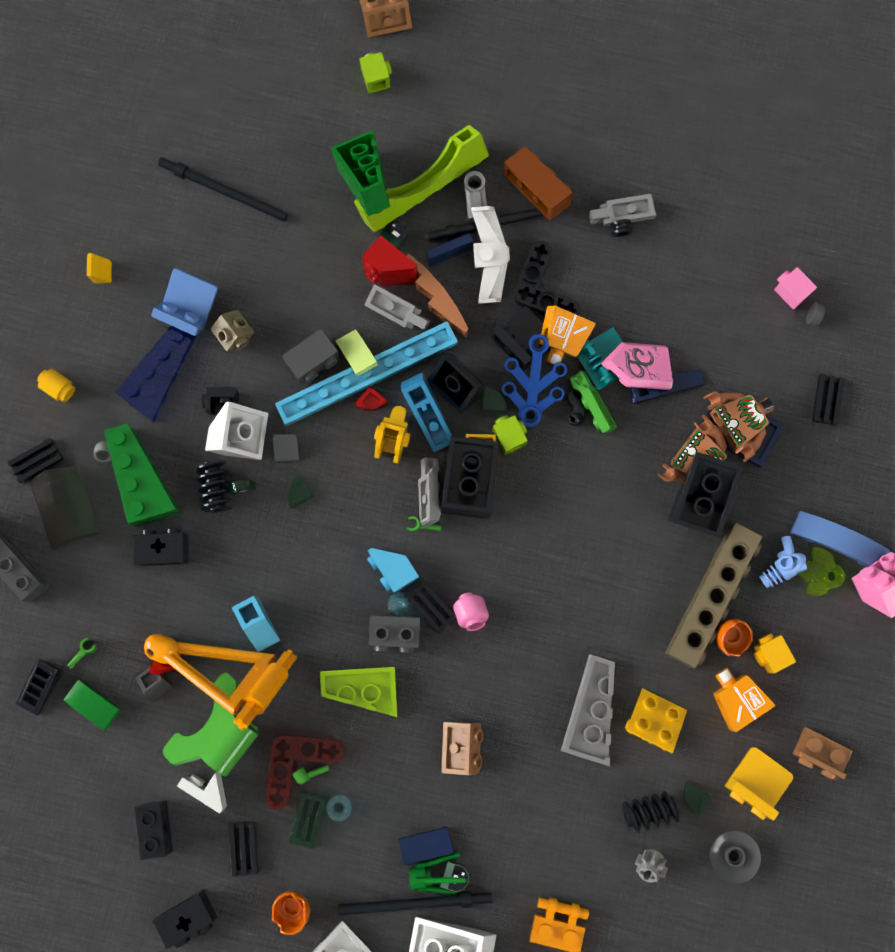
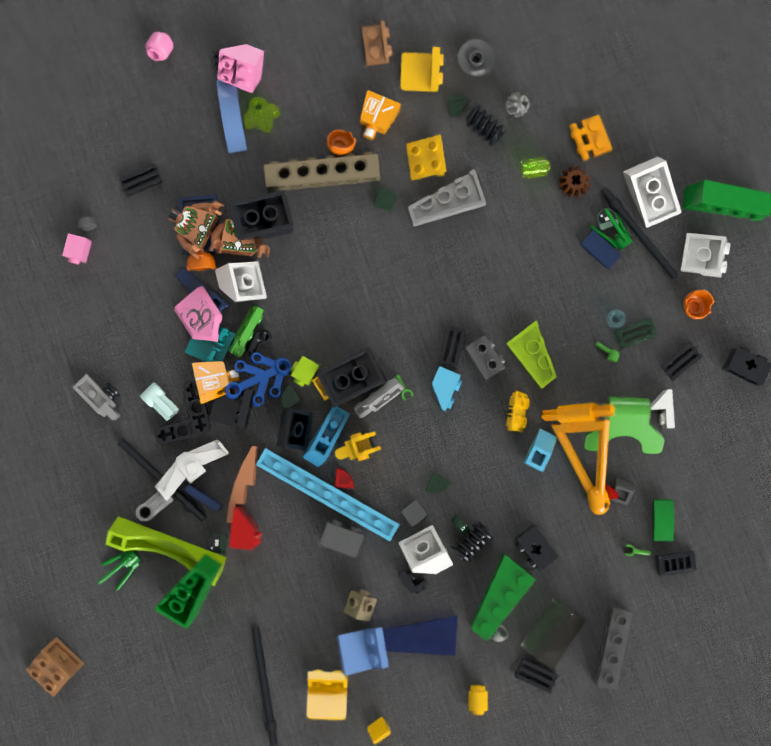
camera: 125 degrees left, 5 degrees up
(153, 830) = (710, 424): black brick -> none
(168, 239) = (327, 695): none -> yellow bracket
(295, 753) = (602, 368): clear red beam -> none
(304, 620) = (520, 404): none -> yellow hinge
(356, 353) = (318, 511): yellowish green slope -> none
(375, 72) = (107, 638): lime brick -> none
(395, 308) = (269, 506): light grey hinge -> none
(398, 604) = (465, 368): clear light blue plate -> none
(439, 139) = (129, 559): none -> green plant
(461, 748) = (527, 267): medium nougat bracket -> none
(471, 611) = (438, 318): bright pink head -> none
(513, 876) = (569, 176): none -> reddish brown gear
(538, 183) = (116, 469): dark orange brick -> none
(565, 836) = (535, 167): none -> clear neon green brick
(583, 268) = (156, 398): none -> light aqua piece
(638, 644) = (385, 199): none -> clear green tile
(648, 431) = (241, 281): none -> white slope
(697, 405) = (204, 262): none -> orange hair
(773, 653) = (334, 112): yellow brick -> none
(786, 566) = (271, 137): light blue piece -> none

